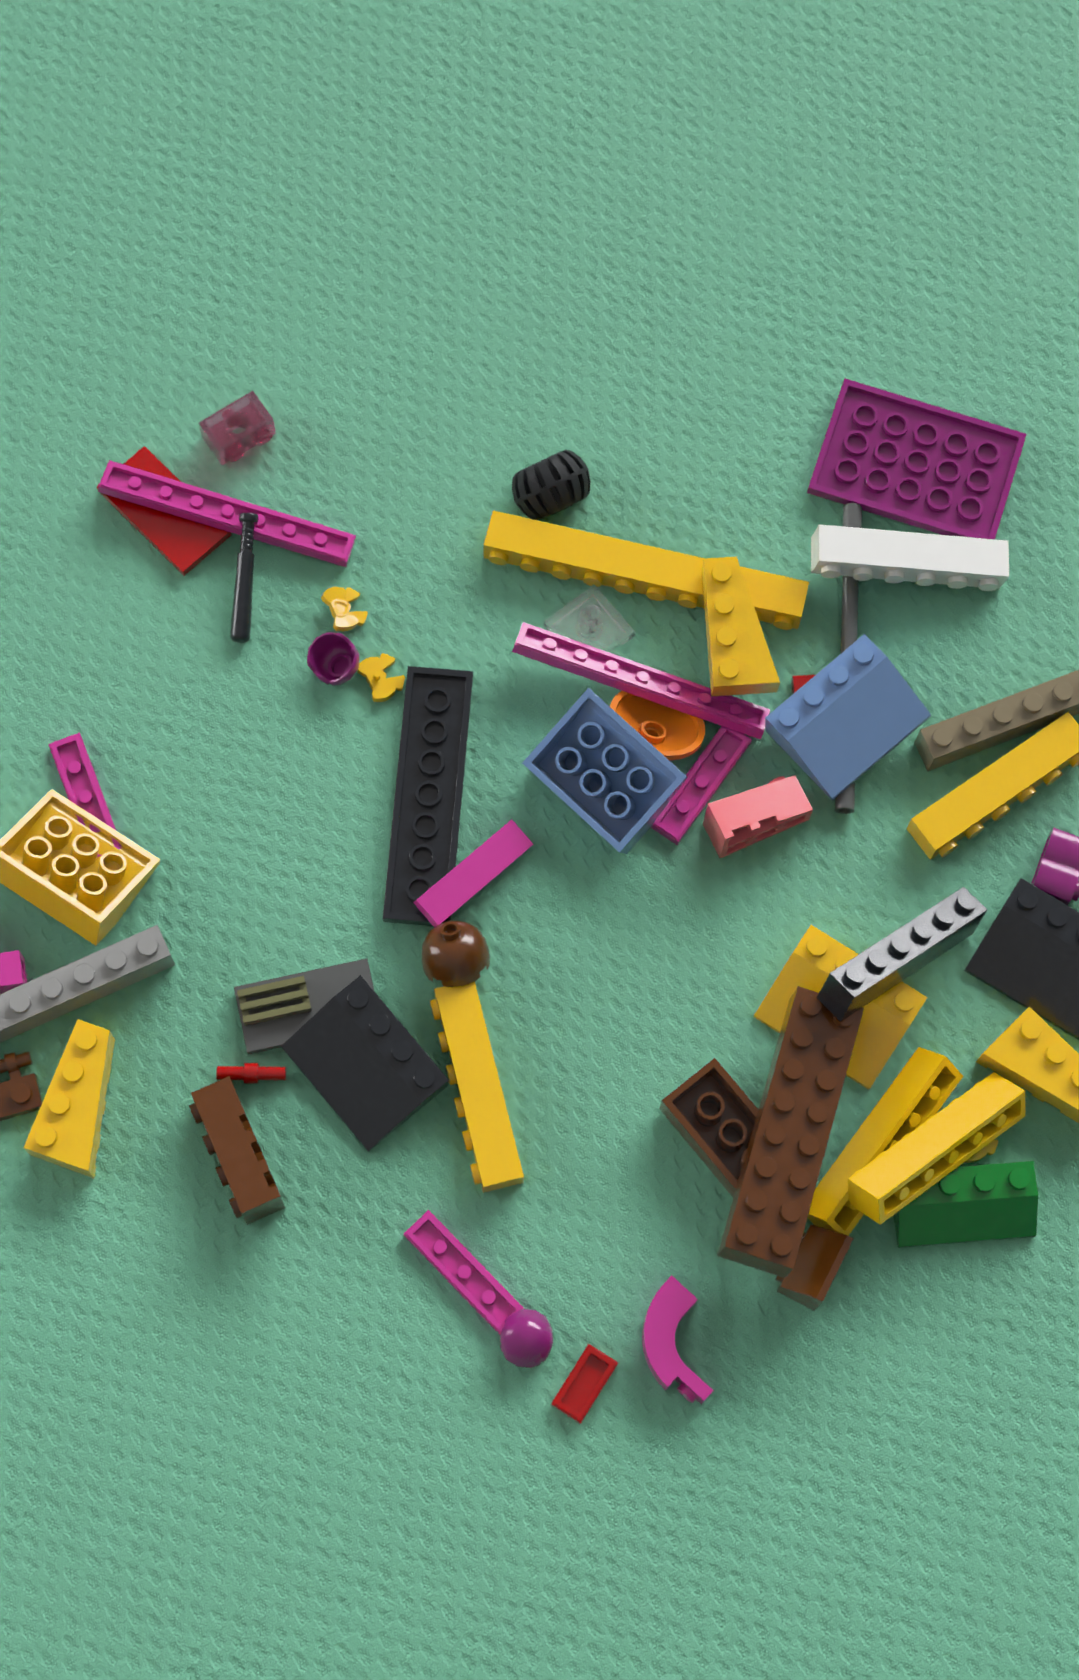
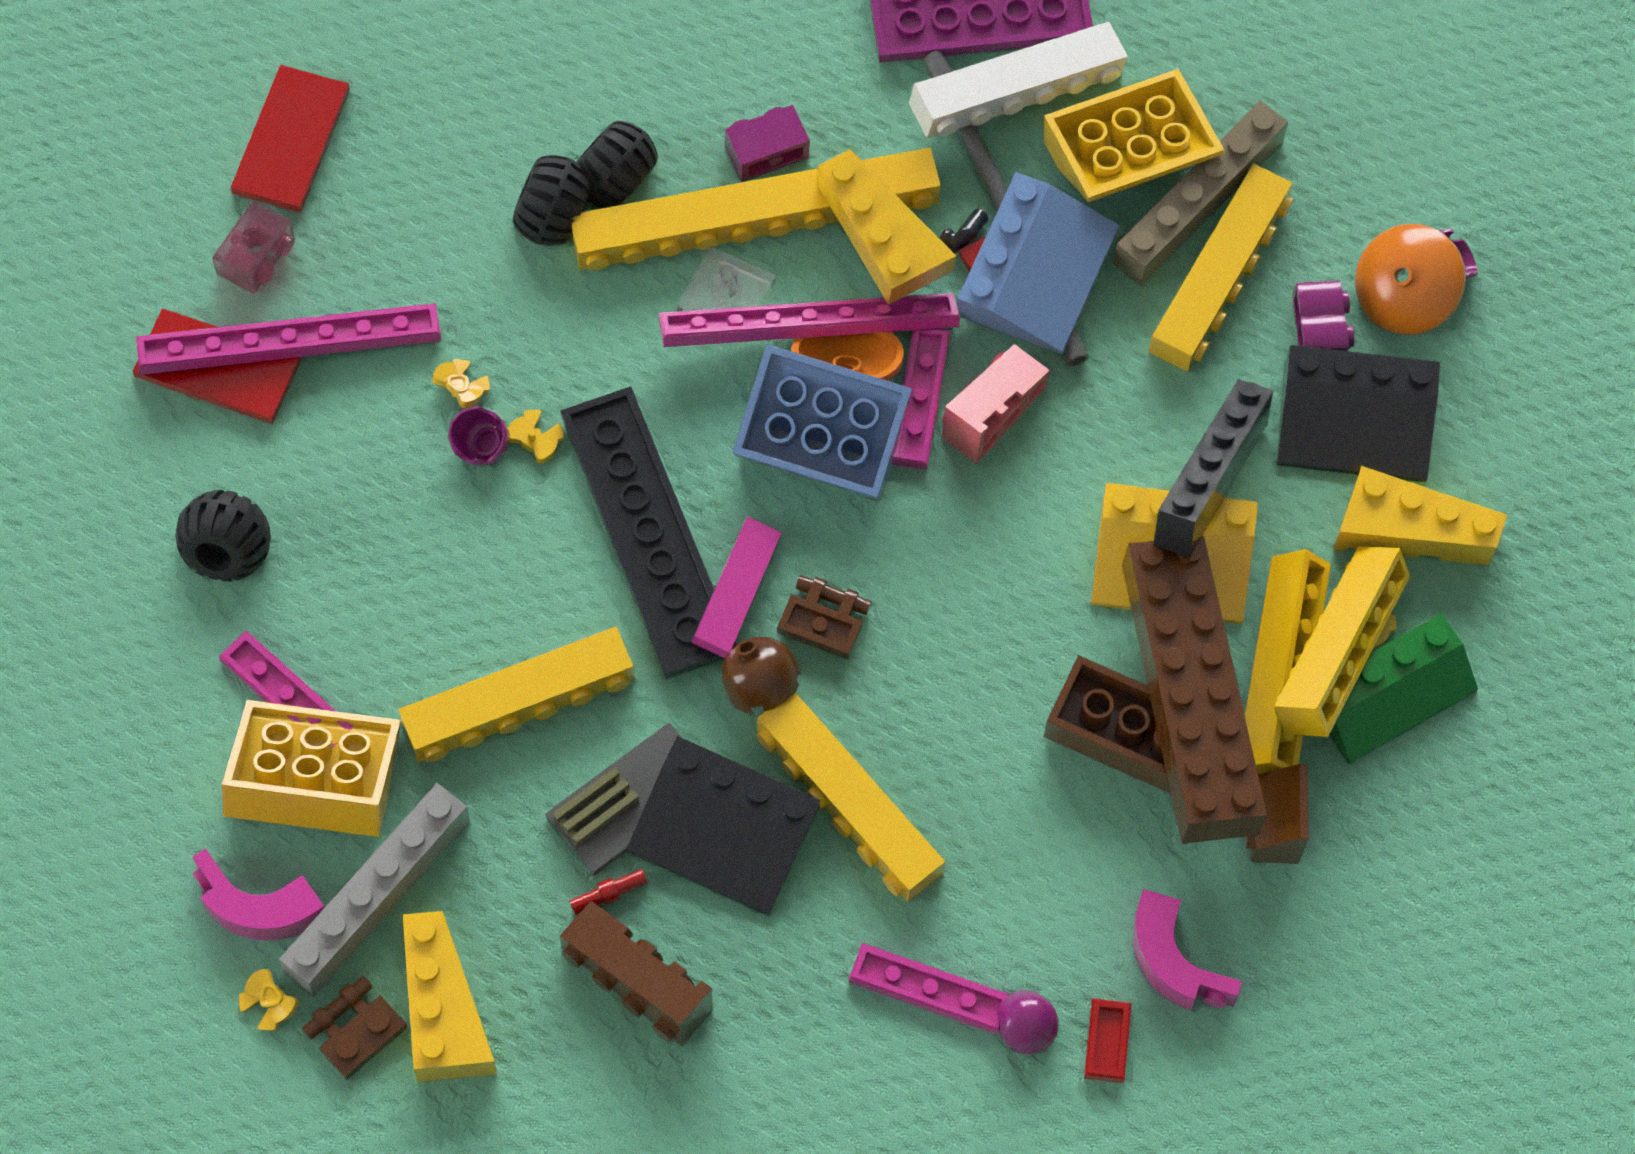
camera: 25 degrees left, 5 degrees down
(98, 649) = (223, 535): none -> black wheel
(243, 588) = (347, 410): black piece -> none
(258, 881) = (517, 695): none -> yellow brick
(311, 352) = (290, 138): none -> red tile
(486, 491) = (550, 200): none -> black wheel
(526, 935) = (822, 626): none -> reddish brown plate
(681, 519) = (767, 142): none -> magenta brick
(804, 665) = (966, 233): none -> black arm
(977, 645) = (1130, 136): none -> yellow slope

